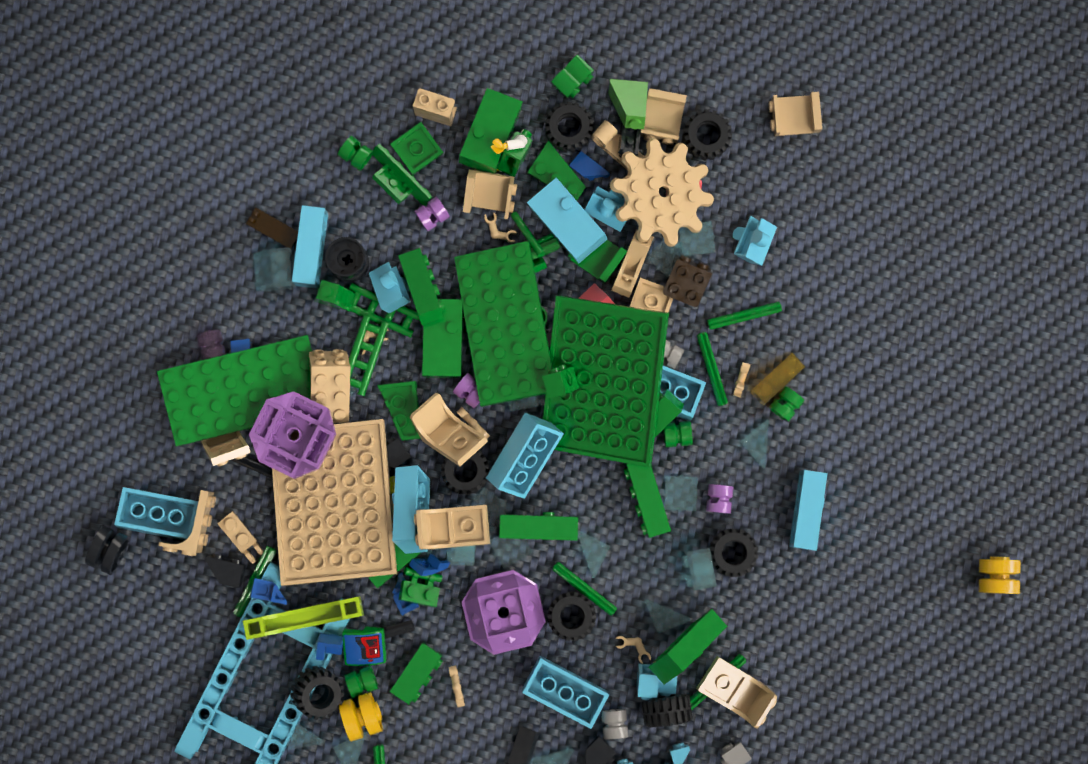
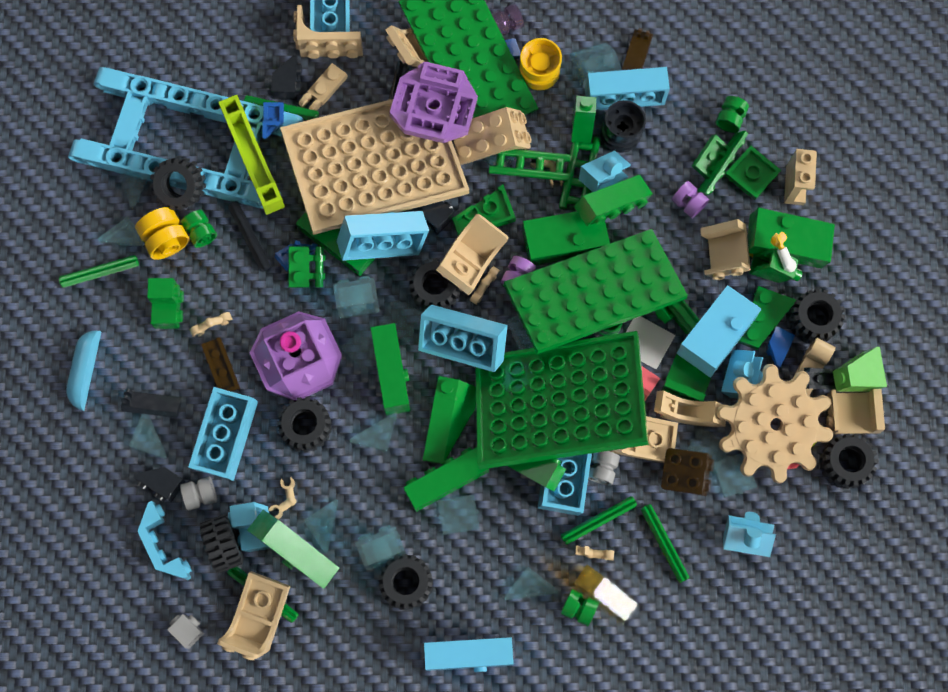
camera: 80 degrees right, 10 degrees down
(266, 323) = (540, 63): none -> yellow wheel
(329, 644) = (229, 184): blue panel -> none
(364, 646) = (234, 223): slope -> none
(417, 674) = (216, 281): green brick -> none
(428, 566) = (327, 268): blue slope -> none
(430, 725) = (165, 300): none -> green brick
(452, 527) = (370, 272): tan bracket -> none
(495, 234) = (685, 267): tan arm -> none
(496, 614) = (290, 342): none -> dark pink tile
(498, 684) = (220, 365): none -> dark brown hinge
(528, 235) = (693, 297): green bar -> none
(555, 282) = (652, 340): none -> white sticker
(560, 381) = (548, 352): green brick -> none
(572, 77) = (869, 310): green brick -> none
(584, 588) = (336, 434): green axle -> none
(589, 482) = (451, 410): none -> green wedge
(678, 434) = (520, 496): green wheel -> none
(719, 498) = (461, 555): medium lavender wheel -> none
(796, 115) = (895, 553): tan panel -> none

